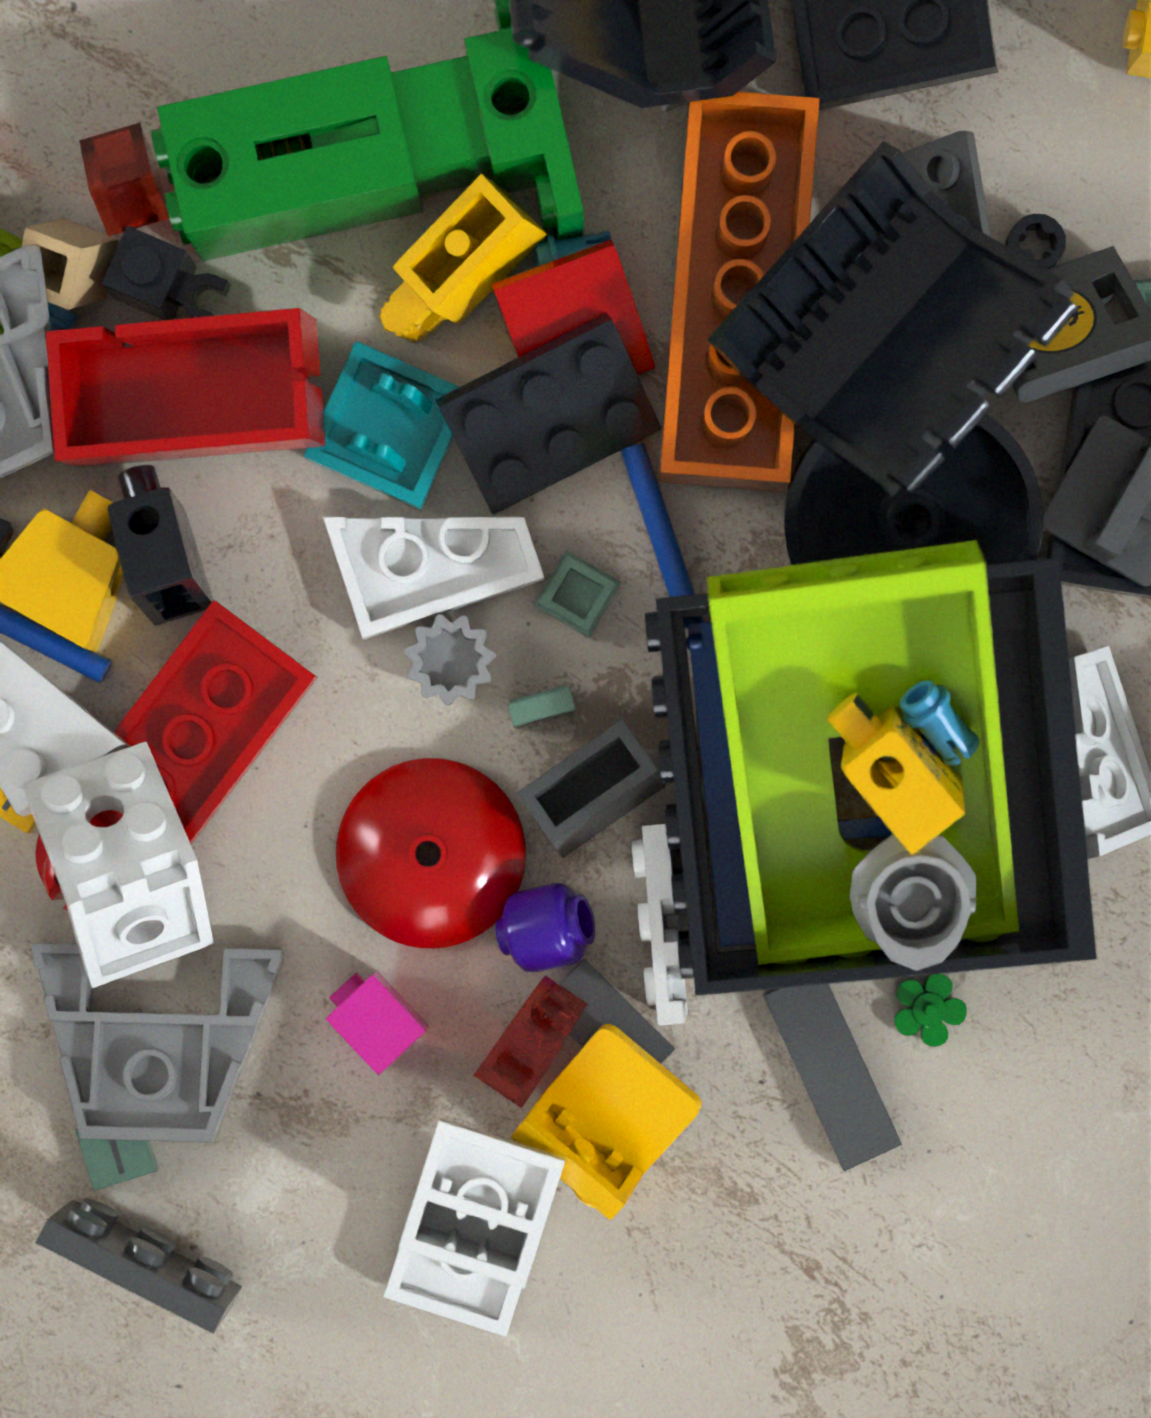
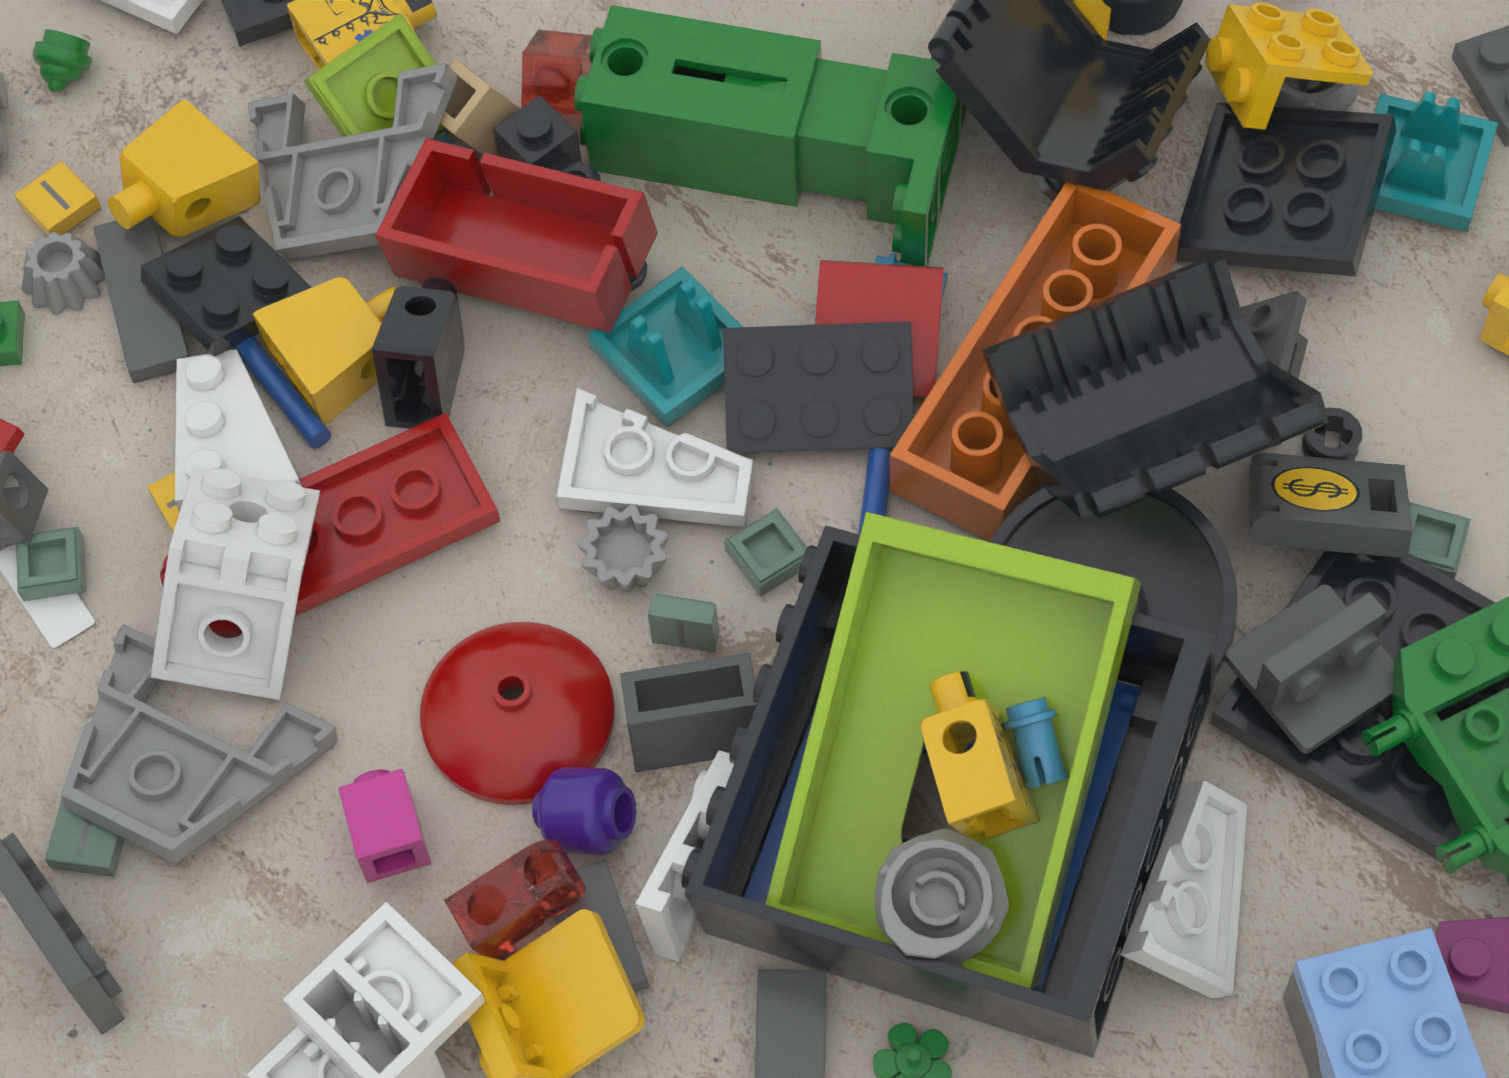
camera: 30 degrees right, 25 degrees down
(459, 260) = (796, 230): yellow hinge -> none

